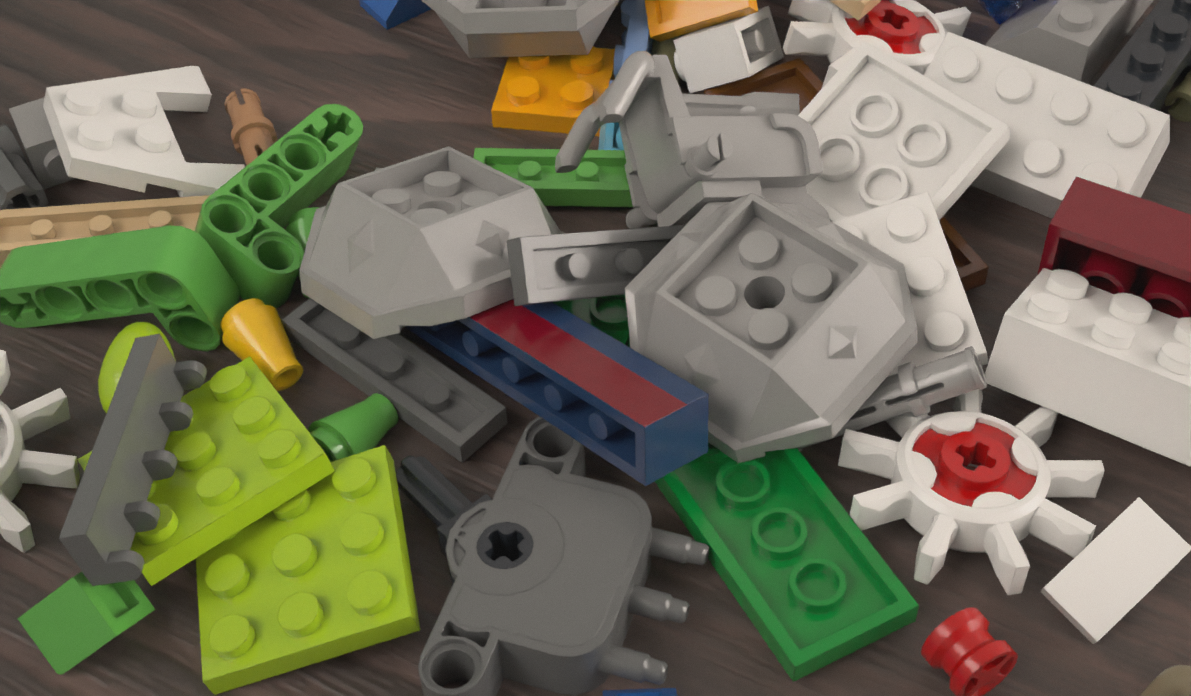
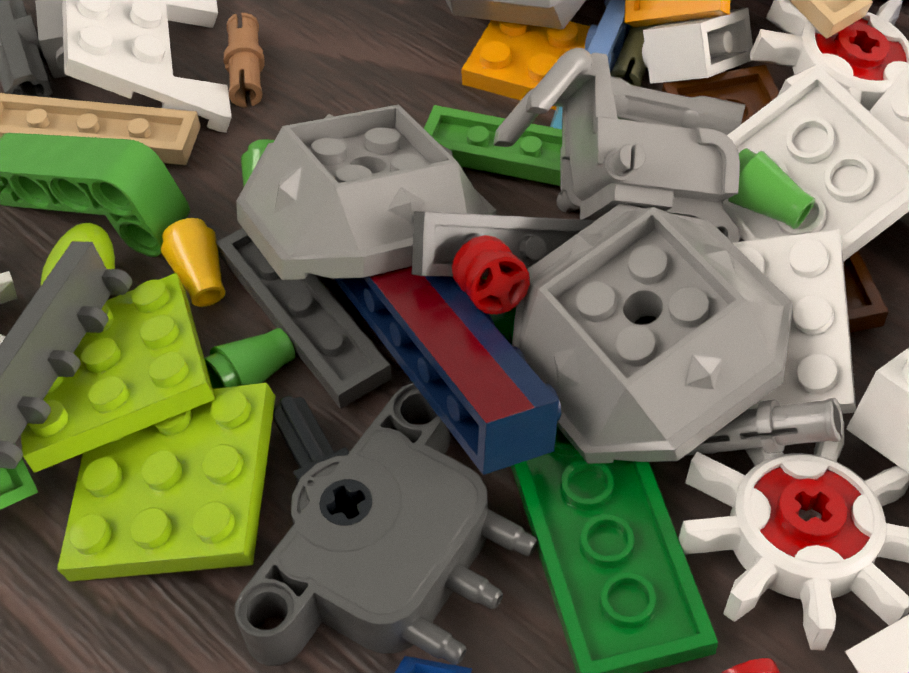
camera: 15 degrees right, 5 degrees up
(250, 210) = (251, 118): bright green beam -> none
(614, 288) = (506, 280): none -> red wheel
(851, 167) = (770, 190): none -> bright green cone

